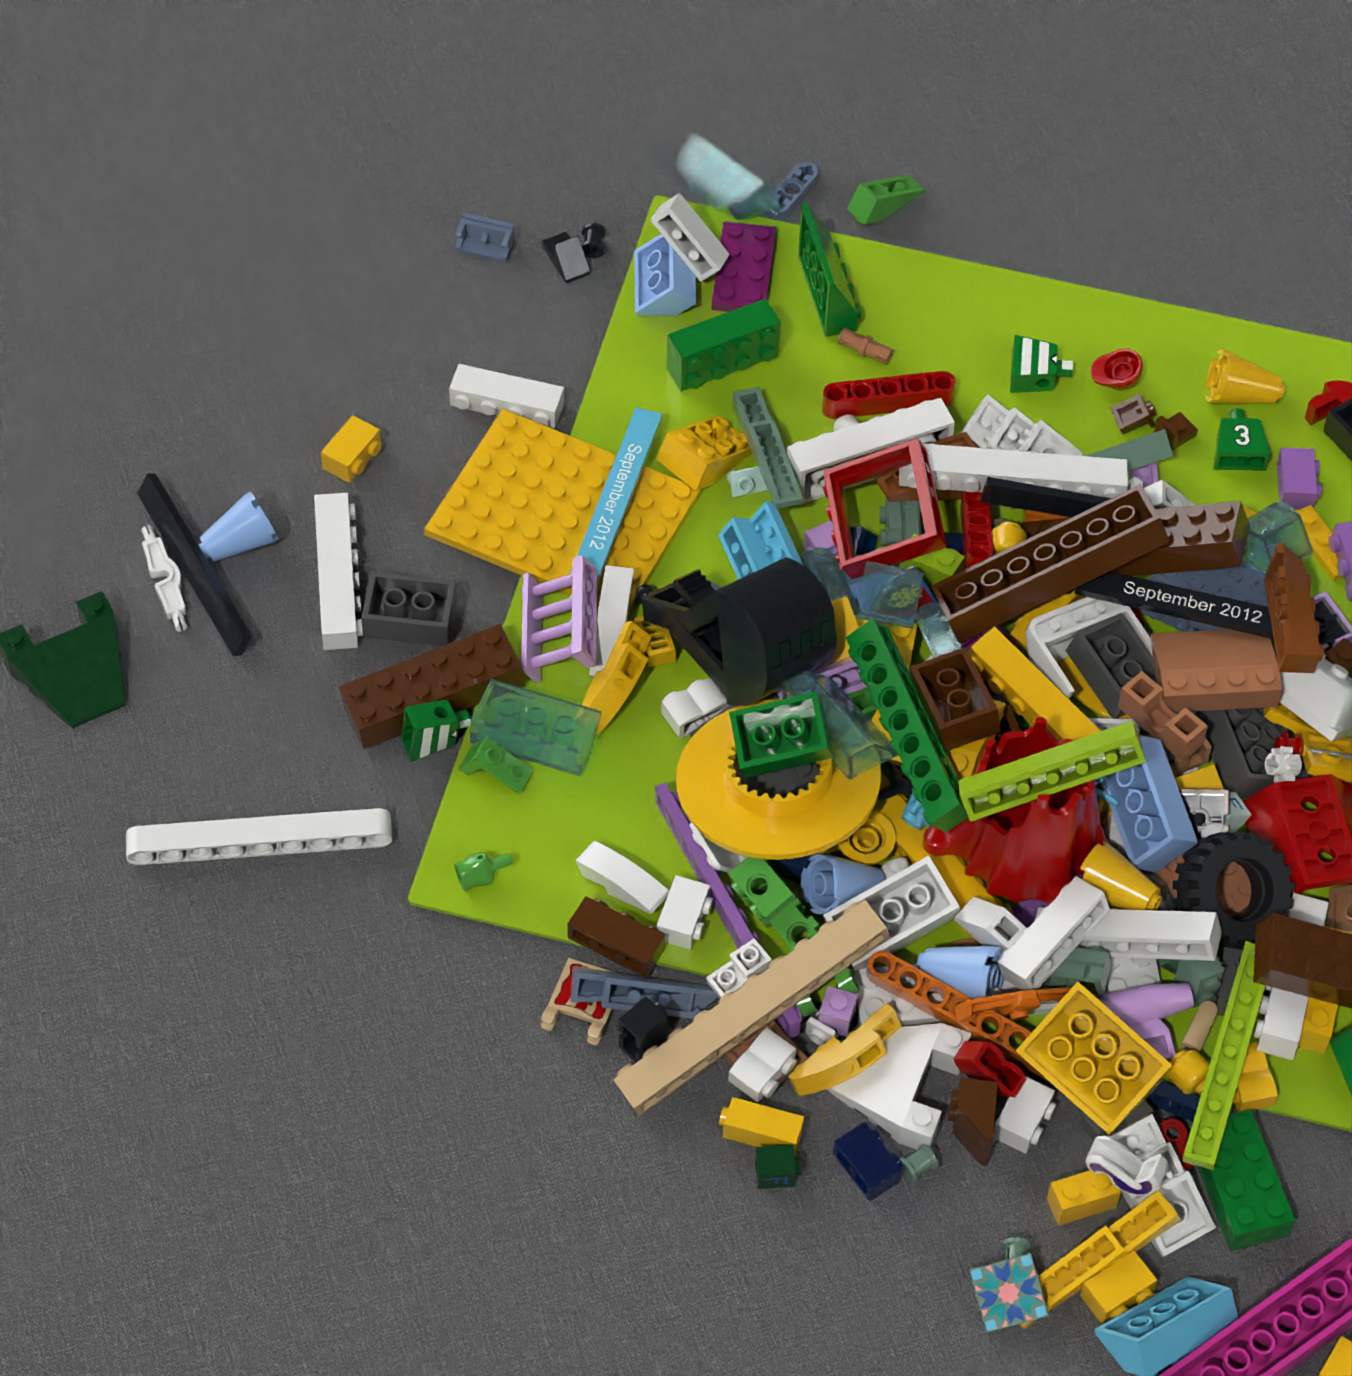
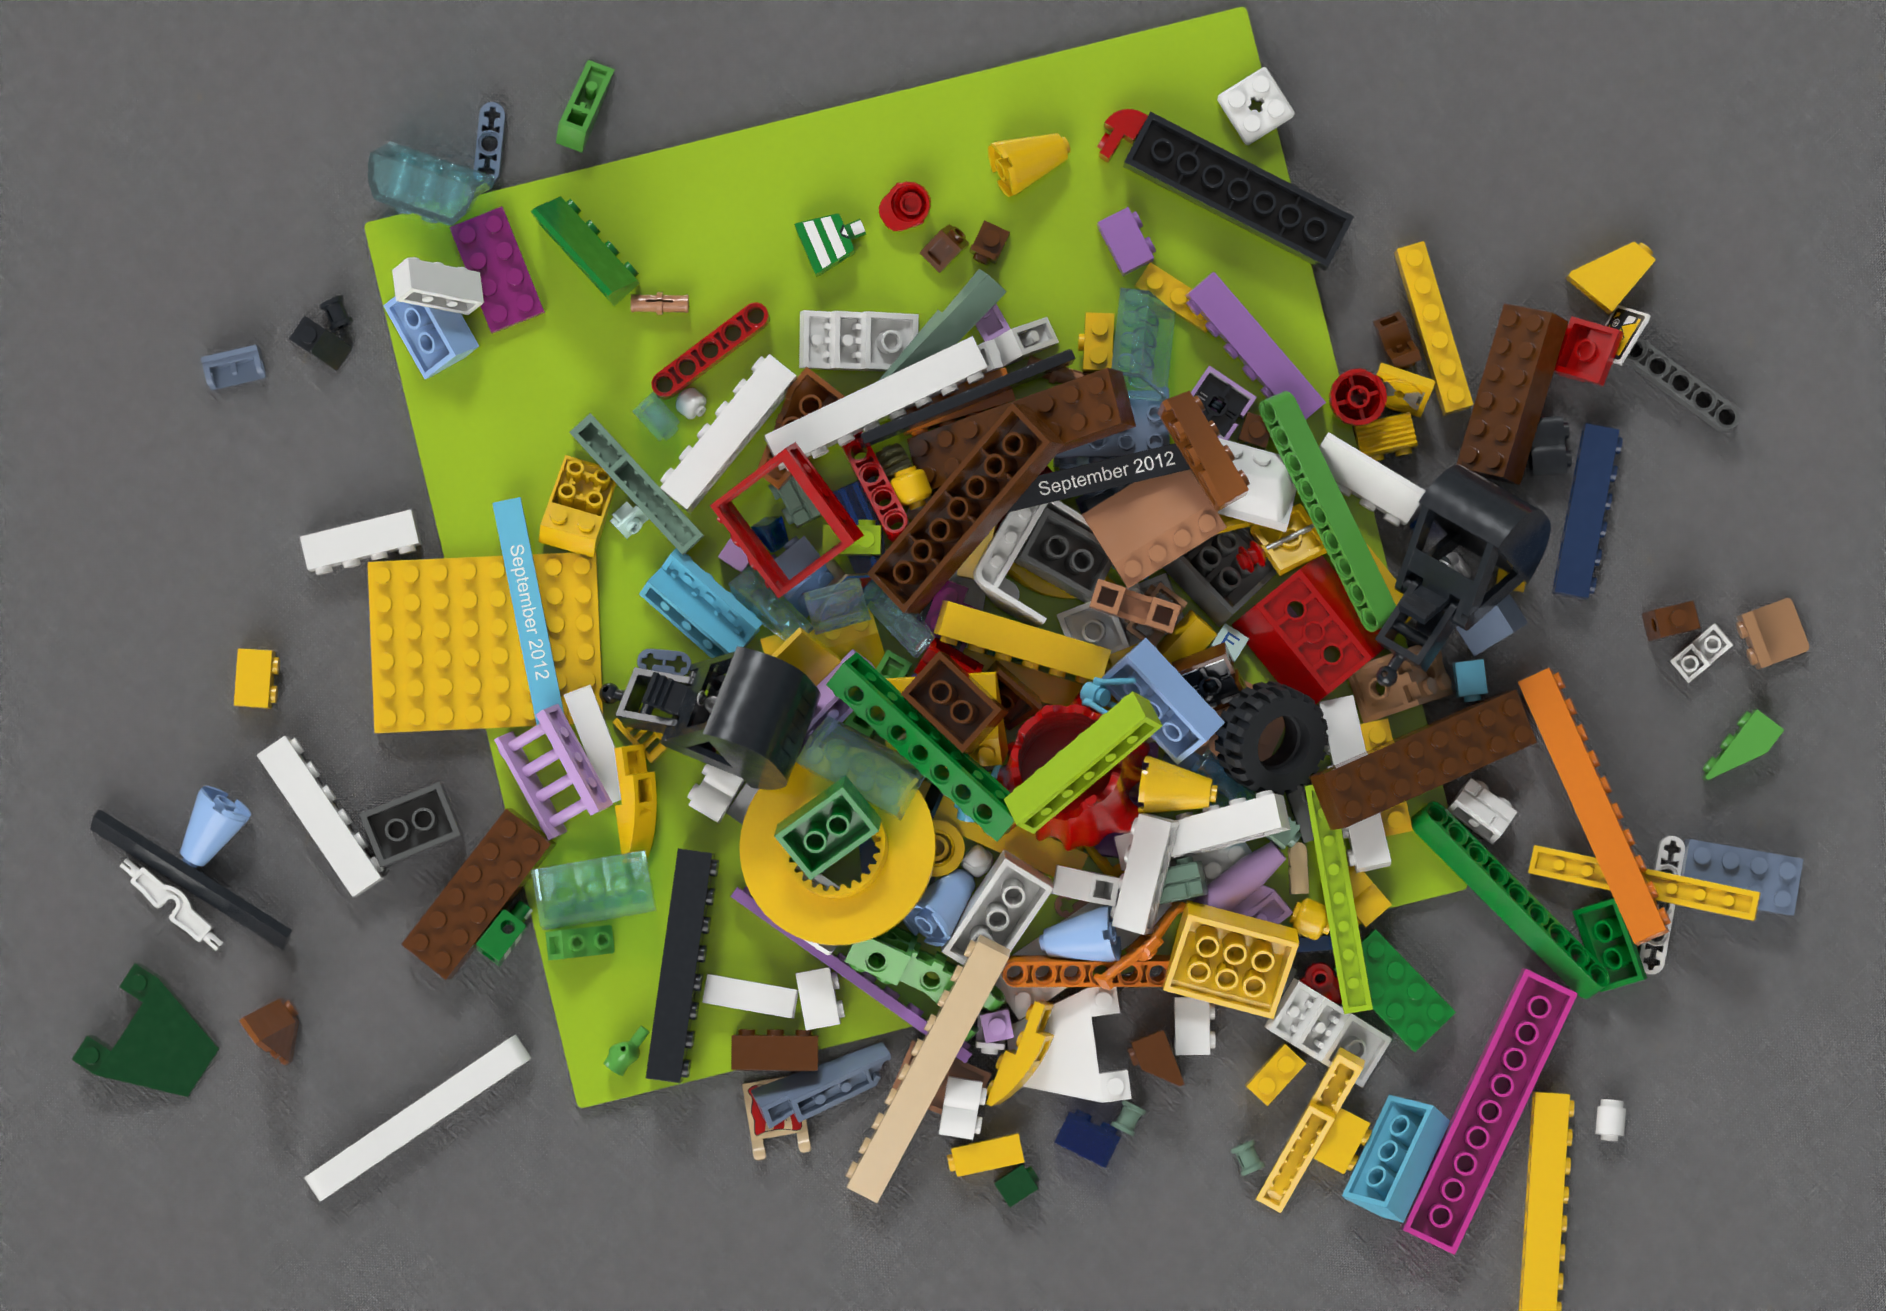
camera: 20 degrees left, 30 degrees up
(186, 692) = (274, 1029): none -> dark orange wedge
(574, 819) = (680, 966): none -> black brick
(642, 1028) = (846, 1128): black brick -> none
(723, 345) = (533, 386): green brick -> none
(744, 962) = (897, 1035): white slope -> none
(813, 409) = (657, 417): none -> clear light blue slope
(988, 1063) = (1148, 1013): red brick -> none
(1009, 1293) = (1258, 1196): tile -> none
(1125, 1168) = (1303, 1049): white animal -> none
(1241, 443) = (1055, 227): green torso -> none
(1283, 764) = (1256, 584): white gear -> none

